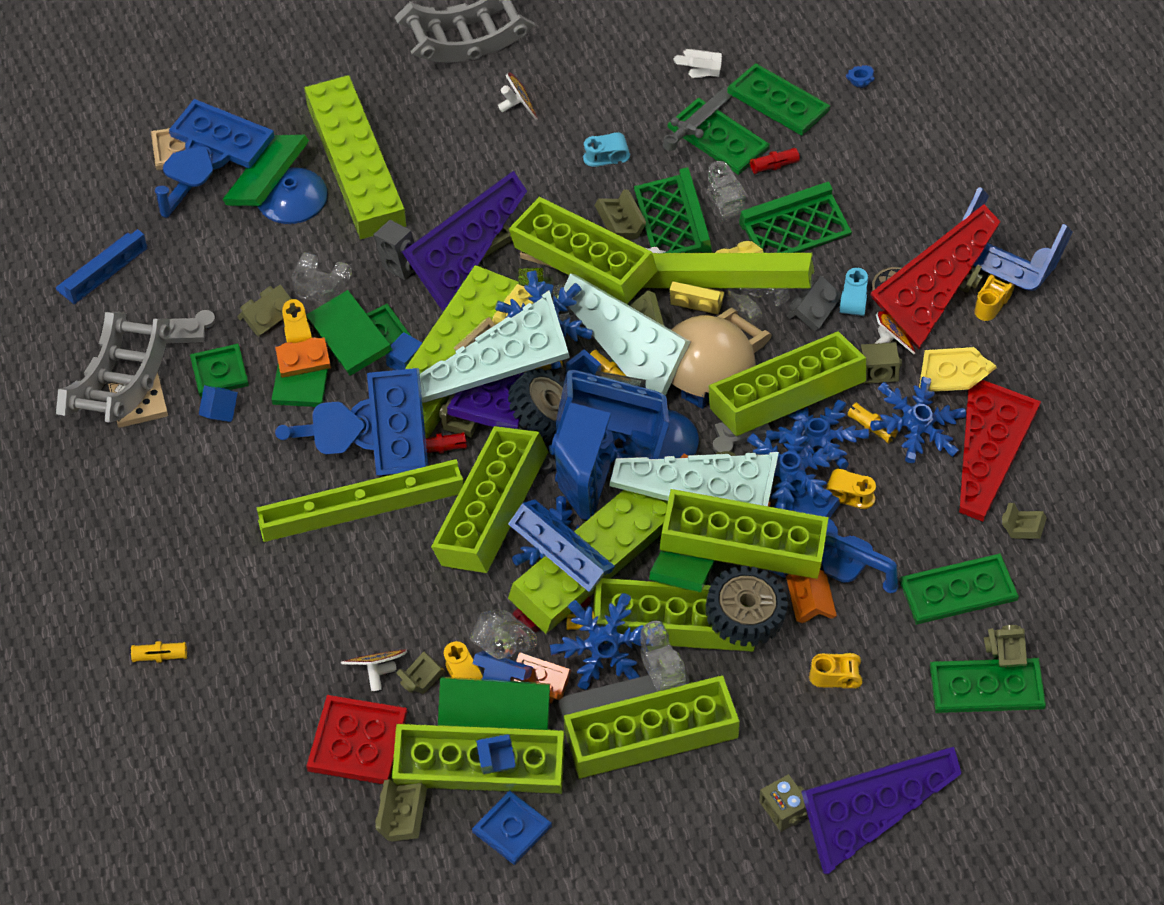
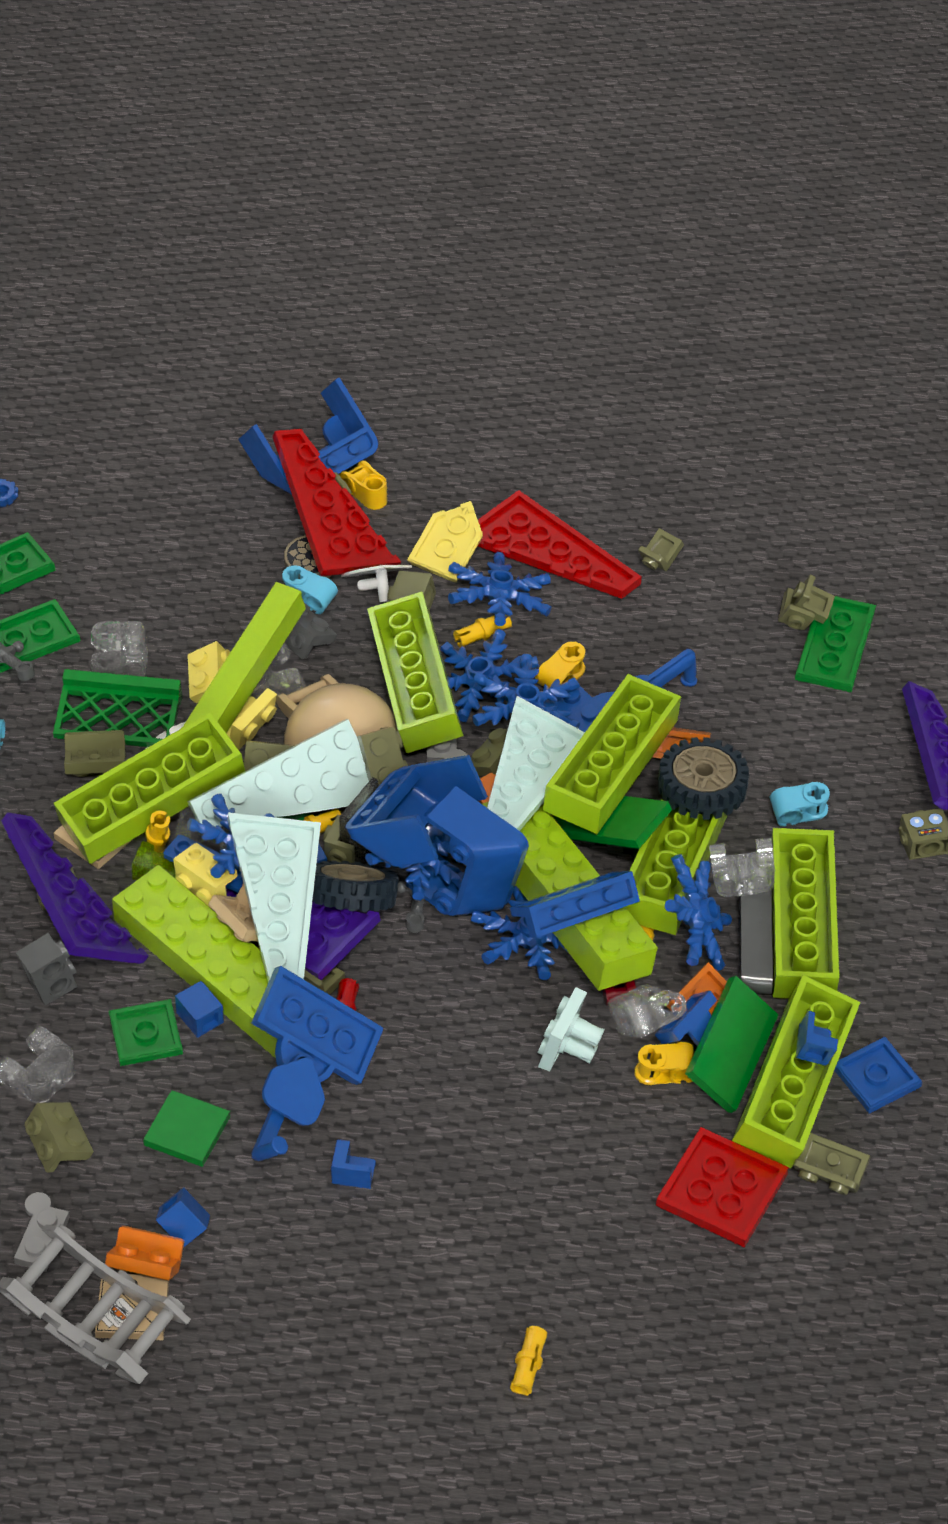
camera: 75 degrees left, 5 degrees down
(175, 390) = (146, 1253): none -> orange bracket
(219, 368) = (124, 1203): green tile -> none
(295, 328) = (106, 1104): yellow piece -> none
(295, 484) = (351, 1169): none -> blue panel
(302, 357) = (157, 1110): orange bracket -> none
(349, 332) = (143, 1053): green tile -> none
(359, 500) = (395, 1108): lime tile -> none
(376, 669) = (628, 1136): white shield -> none
(421, 674) = (658, 1103): olive bracket -> none
(459, 588) = (569, 1033): none -> light aqua plate
(489, 499) = (456, 973): lime brick -> none
(550, 271) = (158, 830): none -> yellow pin
(678, 384) = (381, 752): none -> olive bracket
(774, 160) = (82, 601): red pin -> none
(777, 699) = (797, 803): none -> medium azure piece
(791, 205) = (160, 605): green fence -> none
(837, 669) = (782, 749): yellow piece -> none
(958, 588) = (715, 626): green tile -> none

